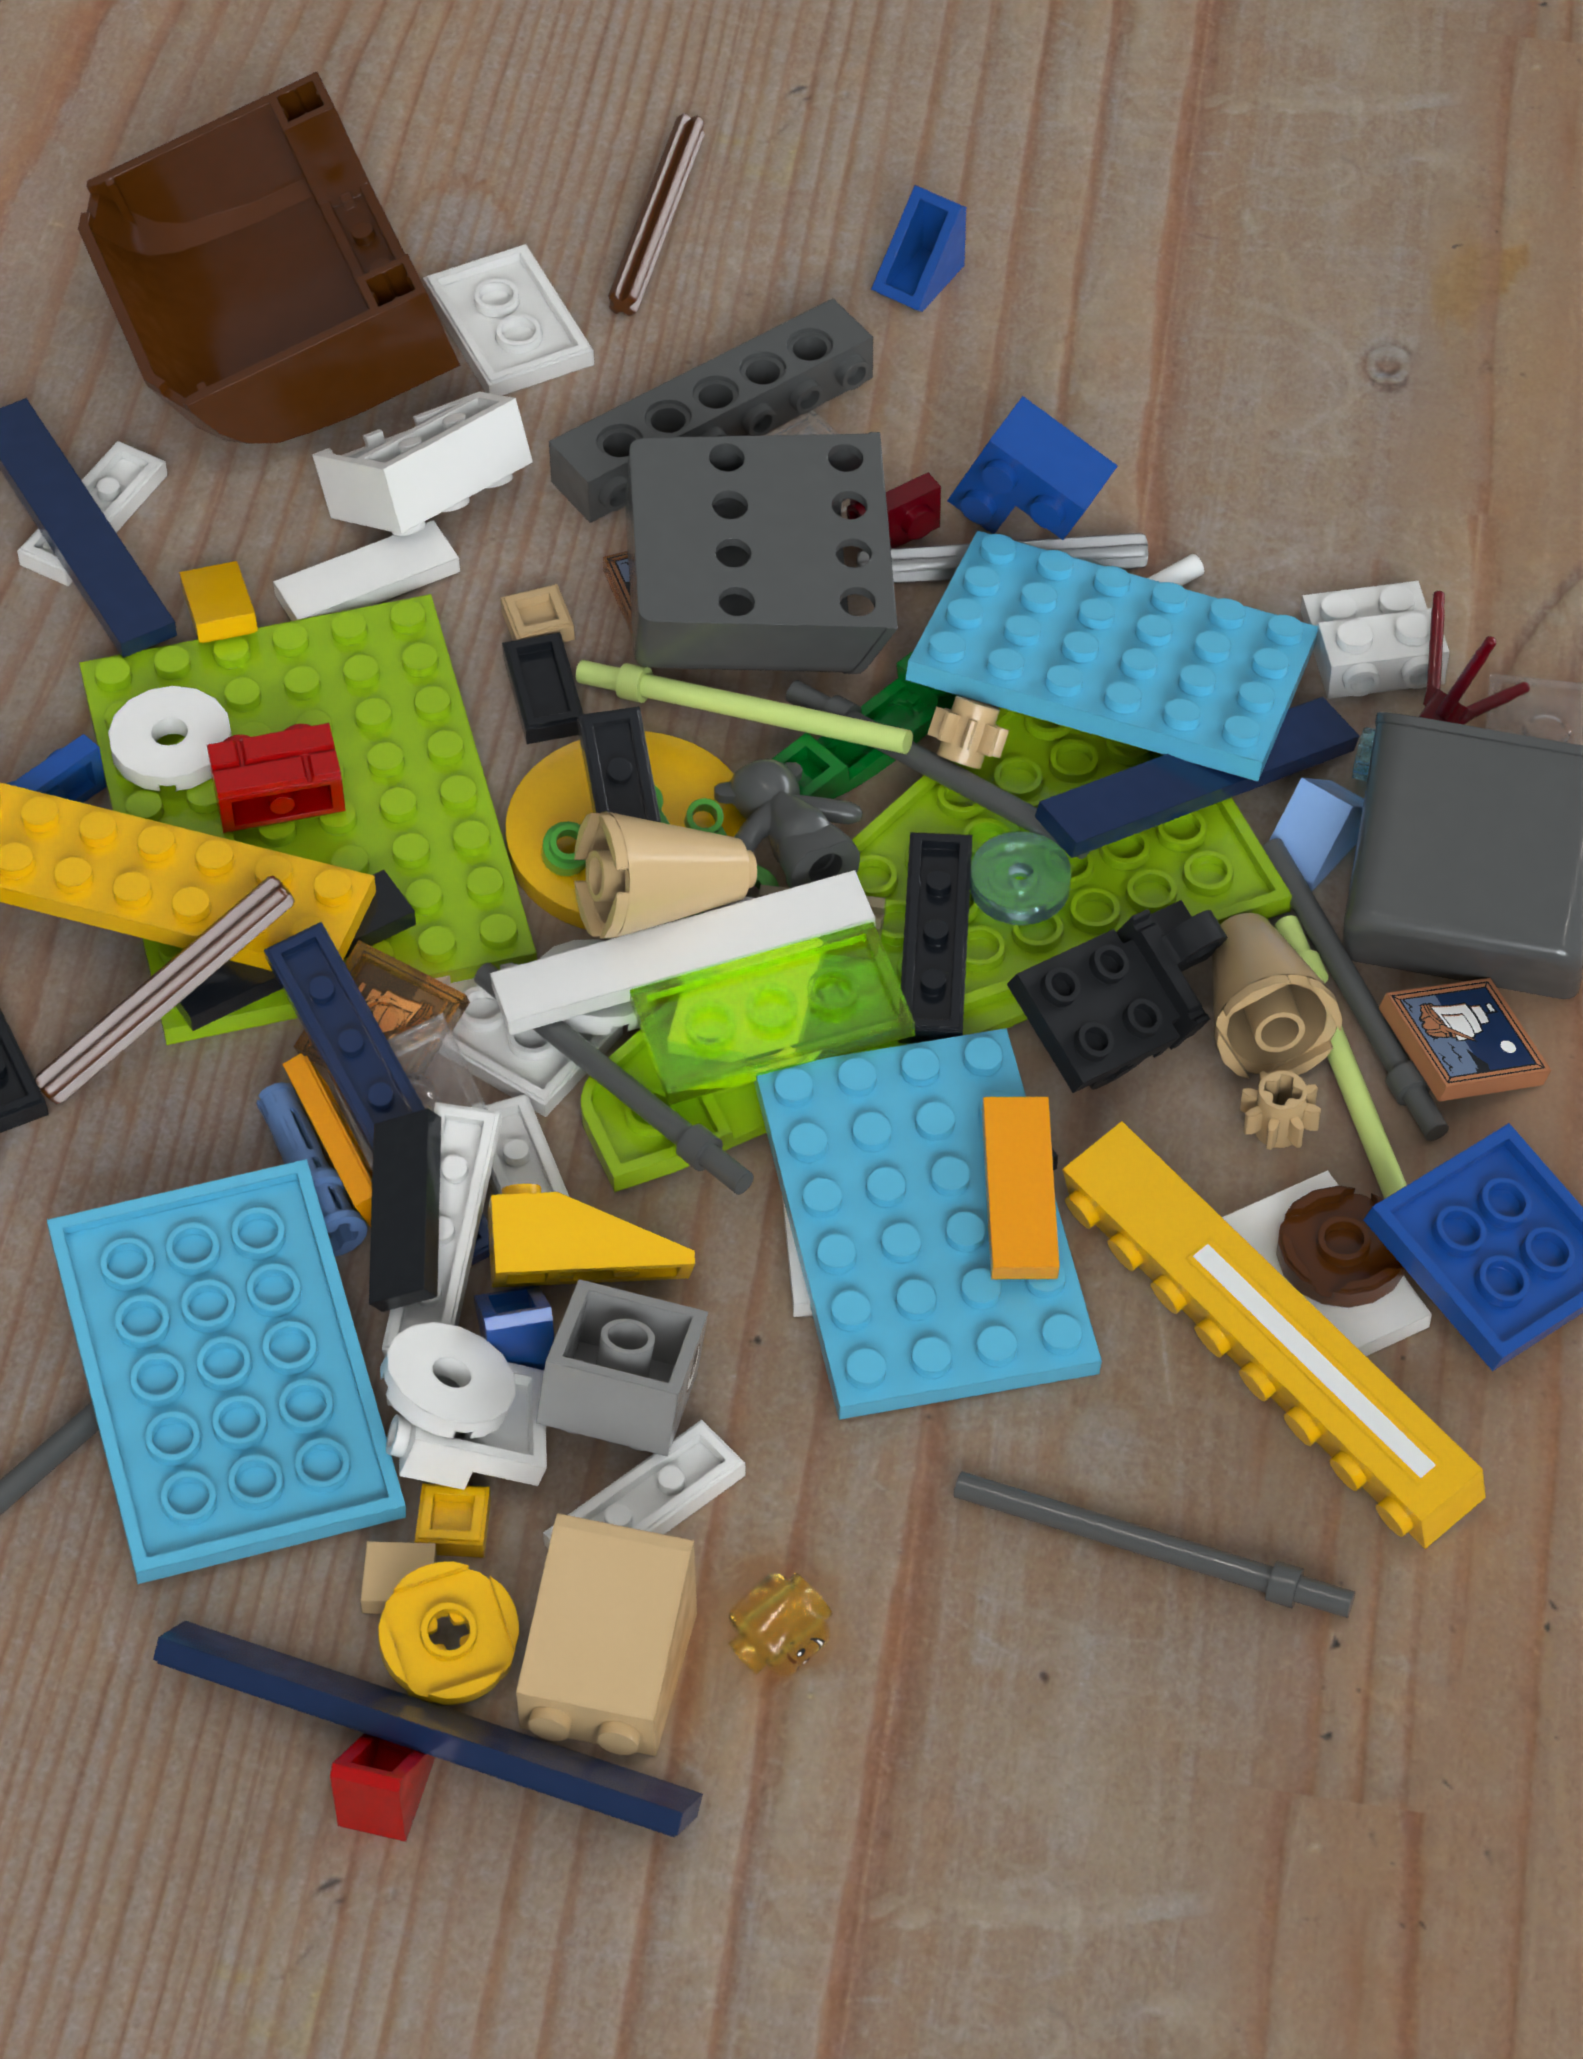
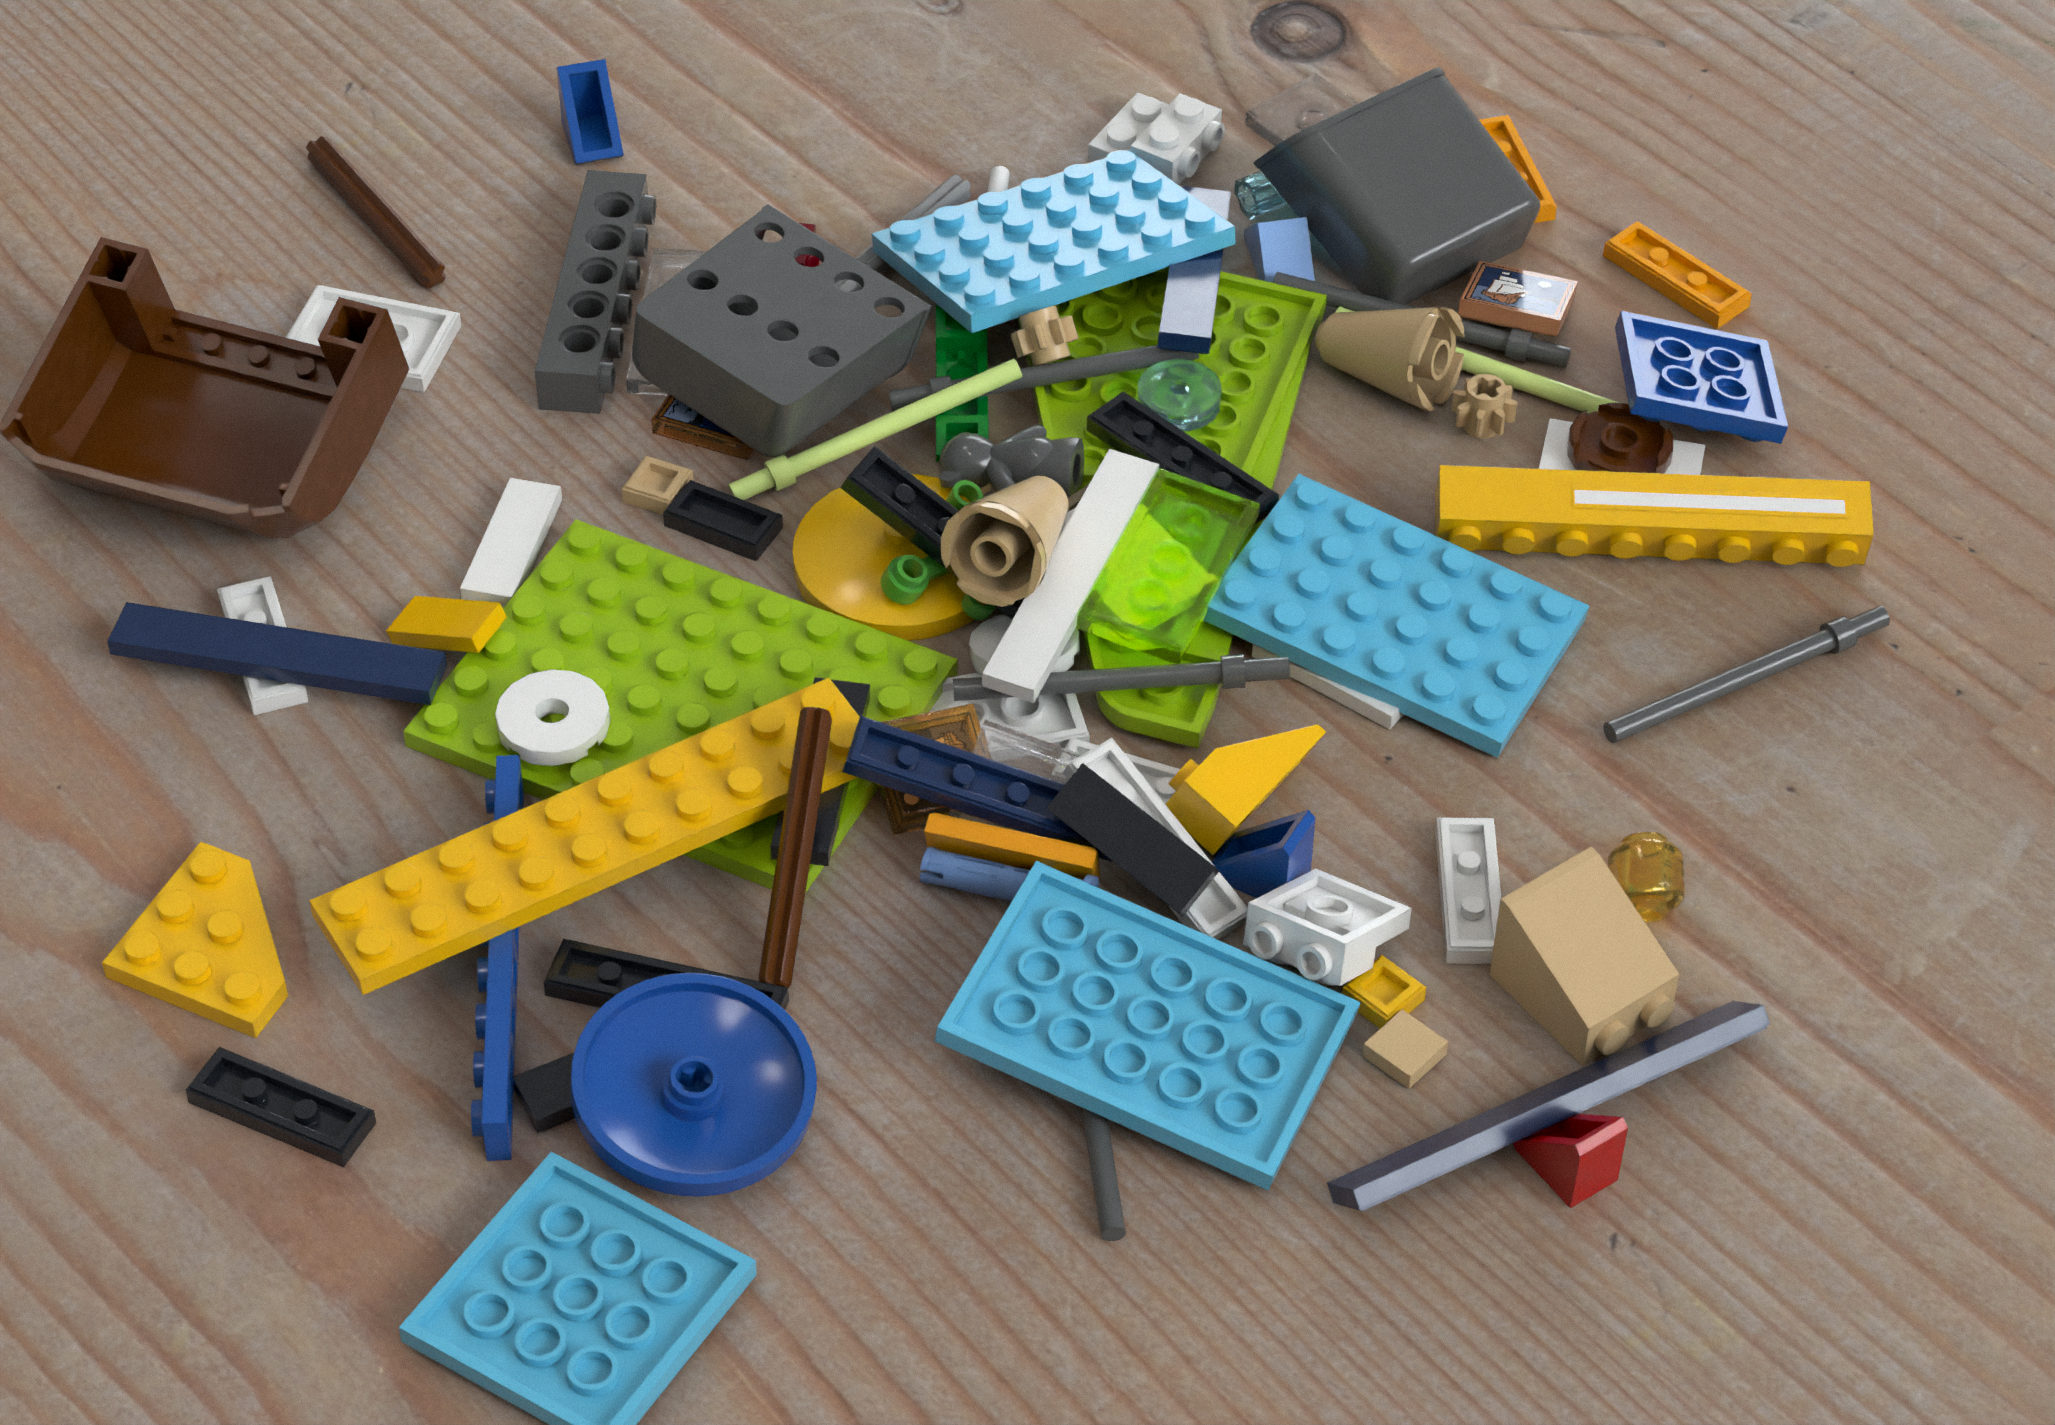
camera: 50 degrees left, 5 degrees down
(276, 777) = (667, 679): red brick -> none
(428, 468) = (470, 448): white wedge -> none
(458, 1354) = (1309, 898): white tile -> none
(468, 1599) = (1474, 1067): yellow plate -> none
(622, 1367) = (1378, 816): light grey brick -> none
(1020, 1188) = (1438, 543): light orange tile -> none
(1035, 467) = (857, 171): blue brick -> none
(1119, 994) = (1329, 406): black plate -> none
(1447, 706) = (1254, 141): dark red plant -> none

